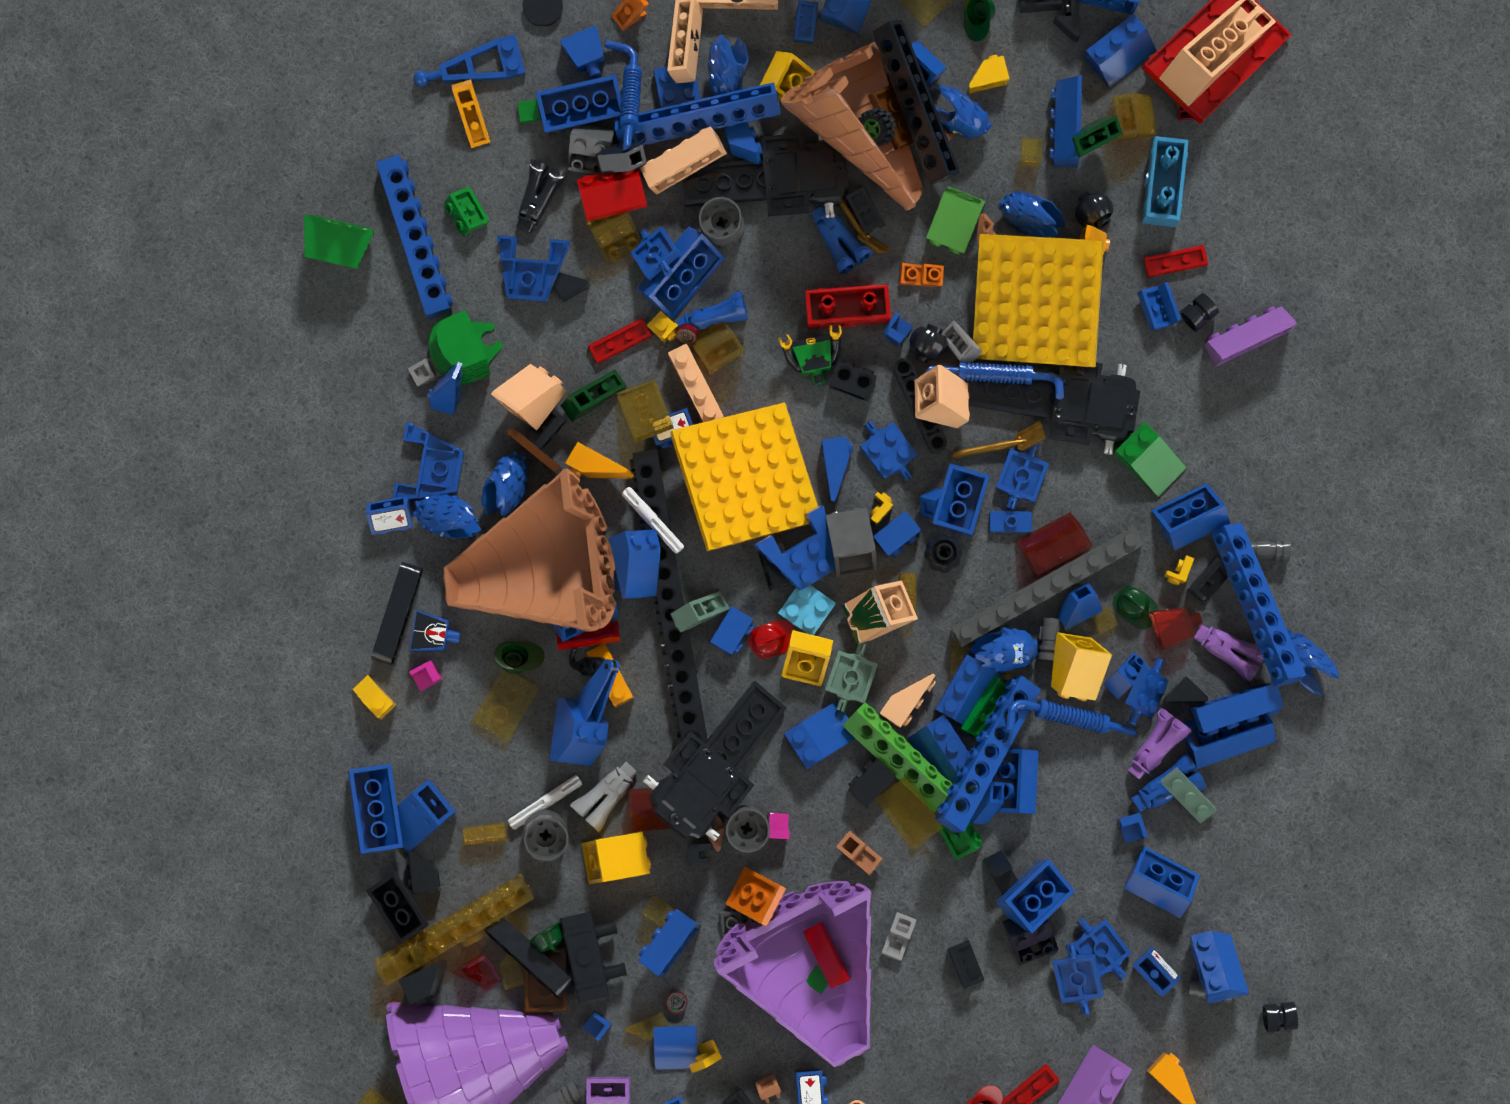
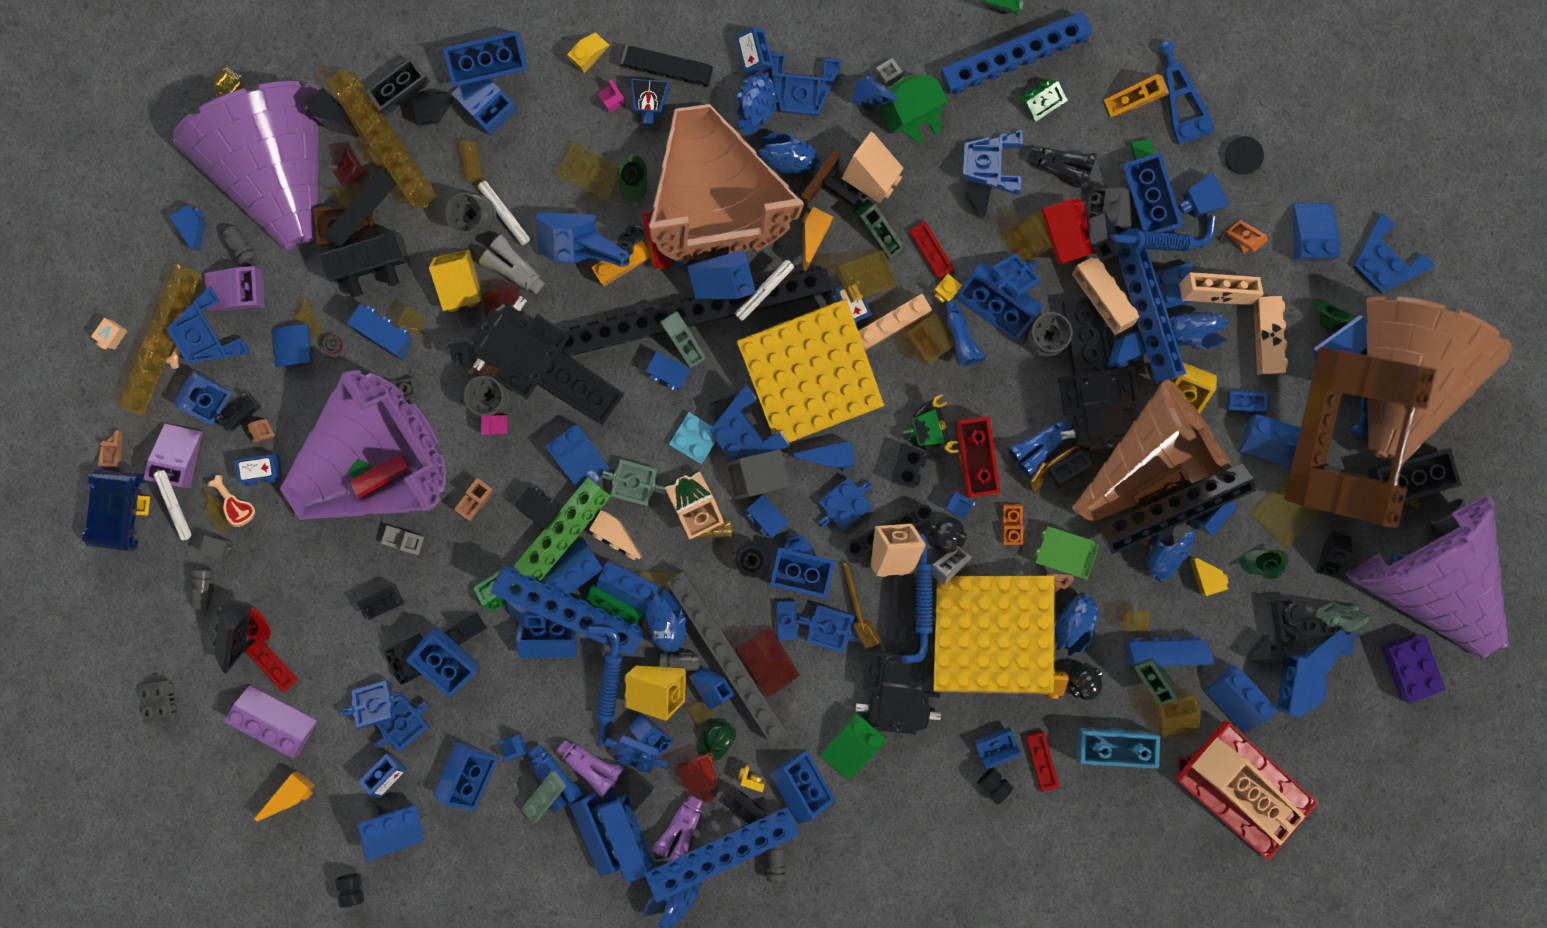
camera: 85 degrees right, 5 degrees up
(548, 938) = (378, 222): dark green piece -> none
(597, 1025) = (307, 274): blue panel -> none
(687, 334) = (941, 310): tile -> none
(708, 1055) = (282, 374): yellow bracket -> none
(755, 896) = (426, 407): orange plate -> none
(770, 639) = (665, 408): red piece -> none
(807, 658) = (648, 441): yellow slope -> none
(878, 117) = (1153, 466): black wheel -> none
(878, 512) = (787, 499): yellow bracket -> none
(908, 813) = (513, 542): clear yellow piece -> none
(1249, 335) = (976, 834): medium lavender slope -> none

